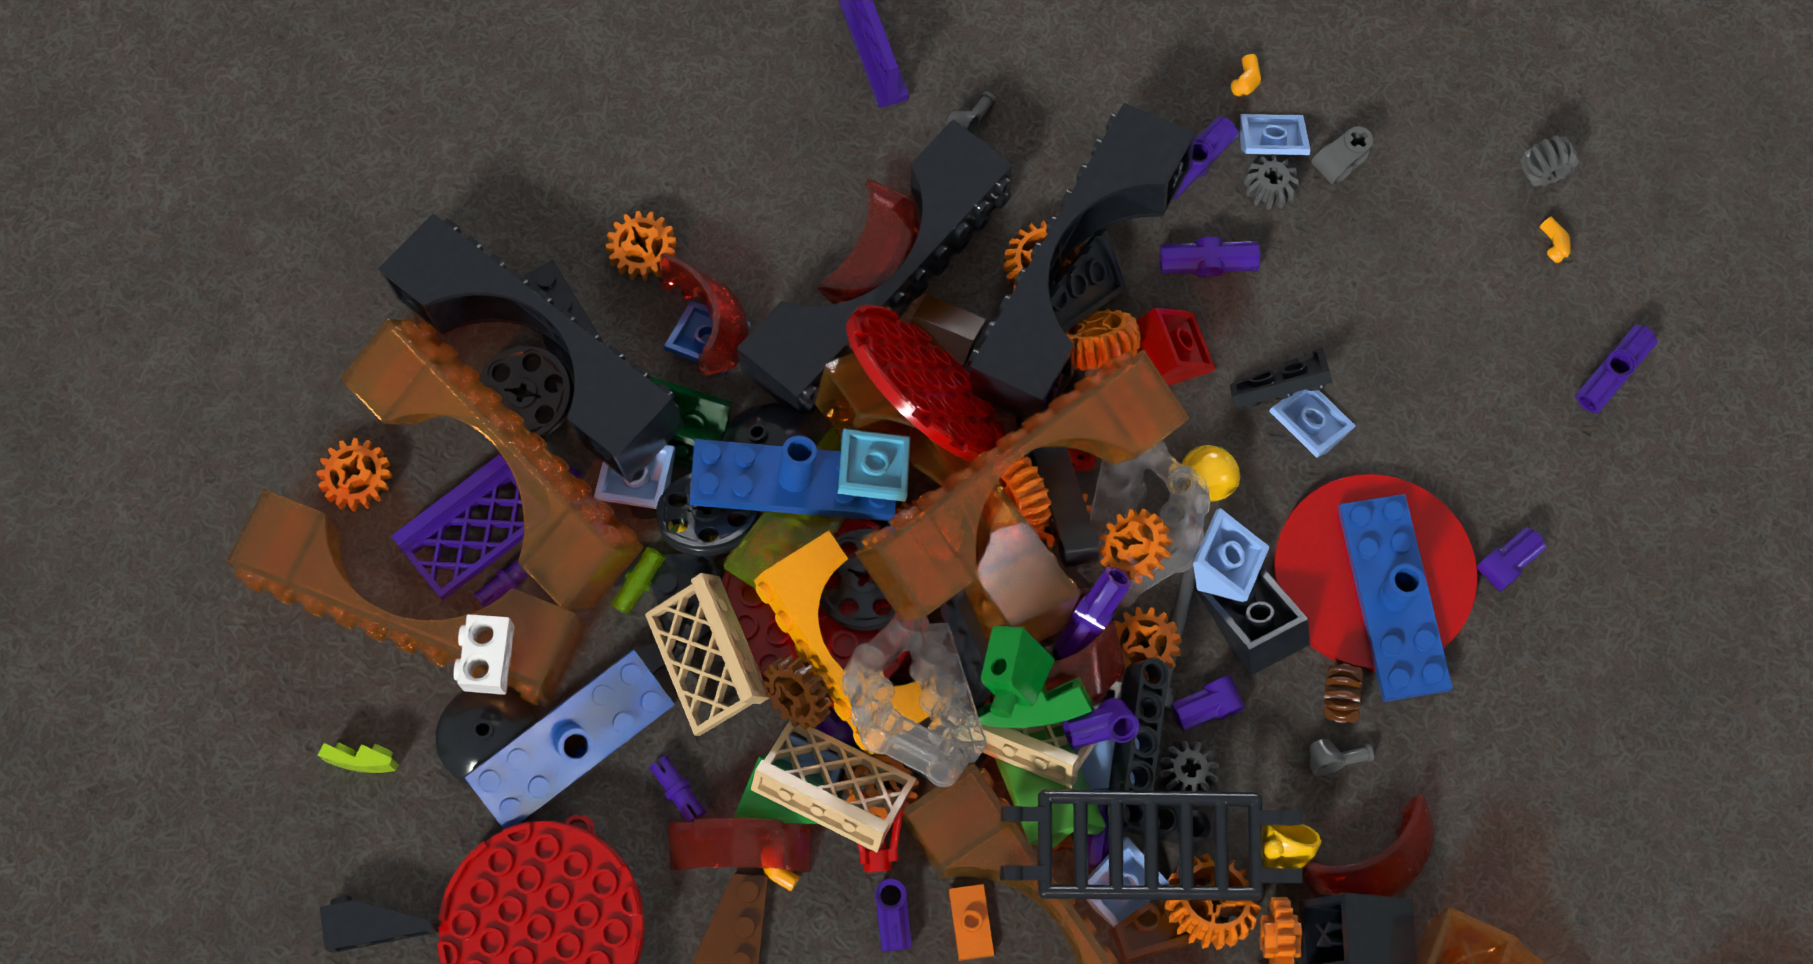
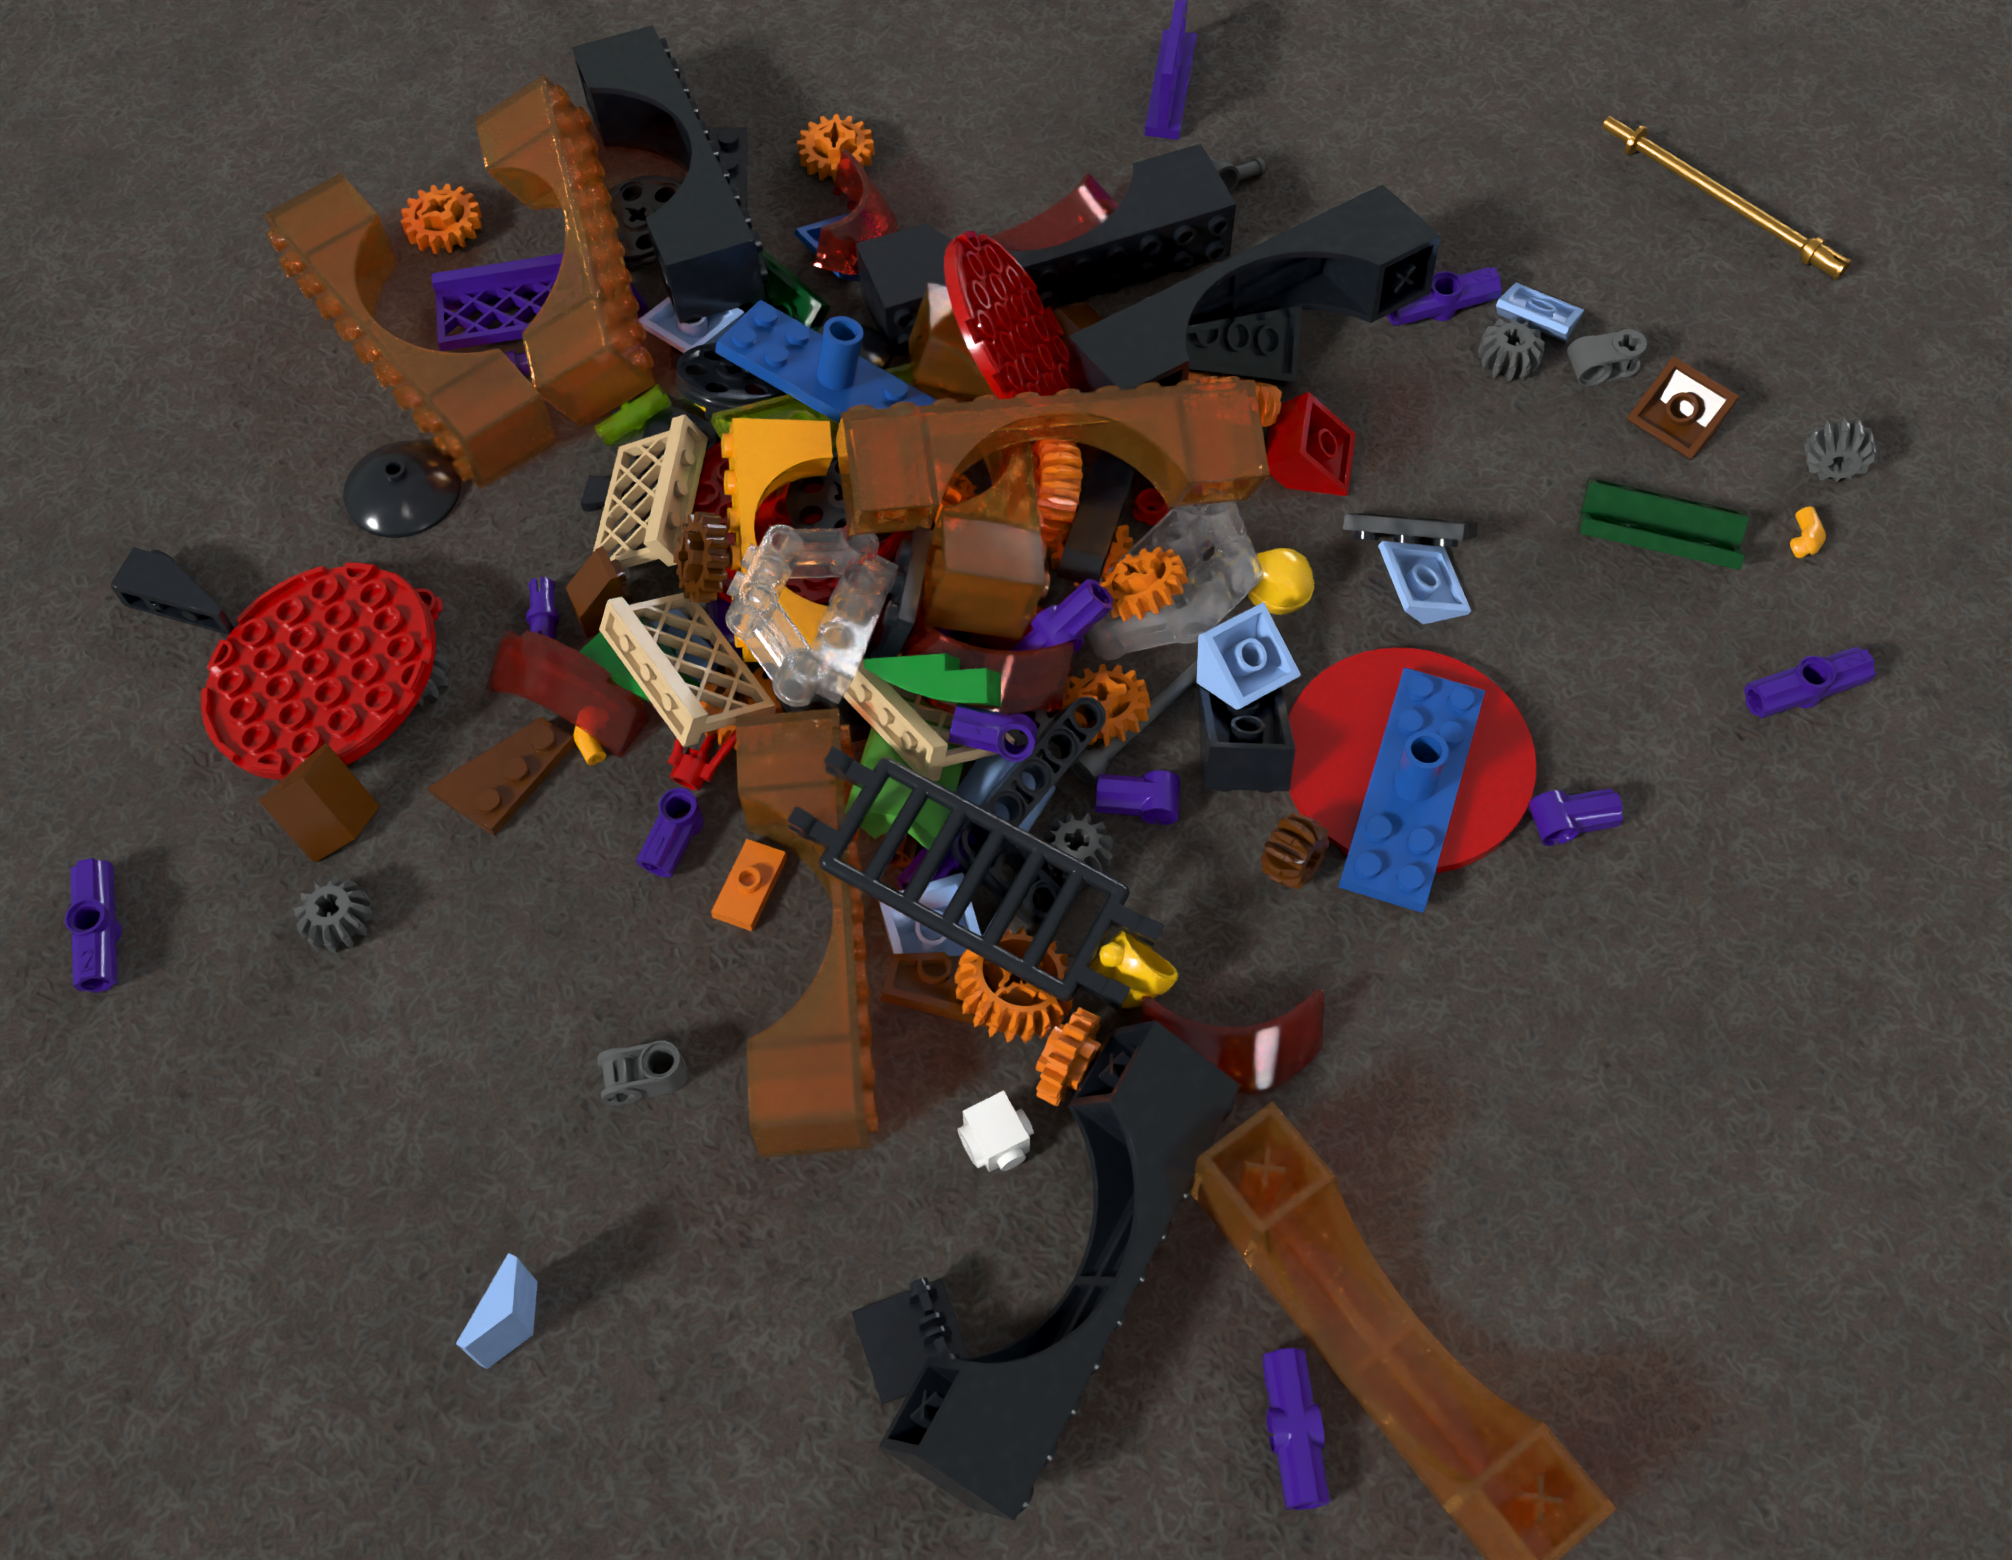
camera: 30 degrees right, 10 degrees down
(366, 760) = (269, 447): lime slope -> none
(494, 654) = (428, 384): white brick -> none
(534, 763) = (502, 520): plate -> none
(717, 752) = (593, 586): none -> reddish brown slope
(874, 465) = (917, 382): medium azure plate -> none
(1014, 669) = (926, 615): green torso -> none
(1210, 257) = (1402, 388): dark purple piece -> none
(1249, 79) = (1542, 255): light orange arm -> none
(1325, 752) = (1241, 906): dark grey bar -> none
(1419, 175) = (1683, 408): none -> reddish brown slope
(1453, 283) = (1663, 523): none -> dark green slope

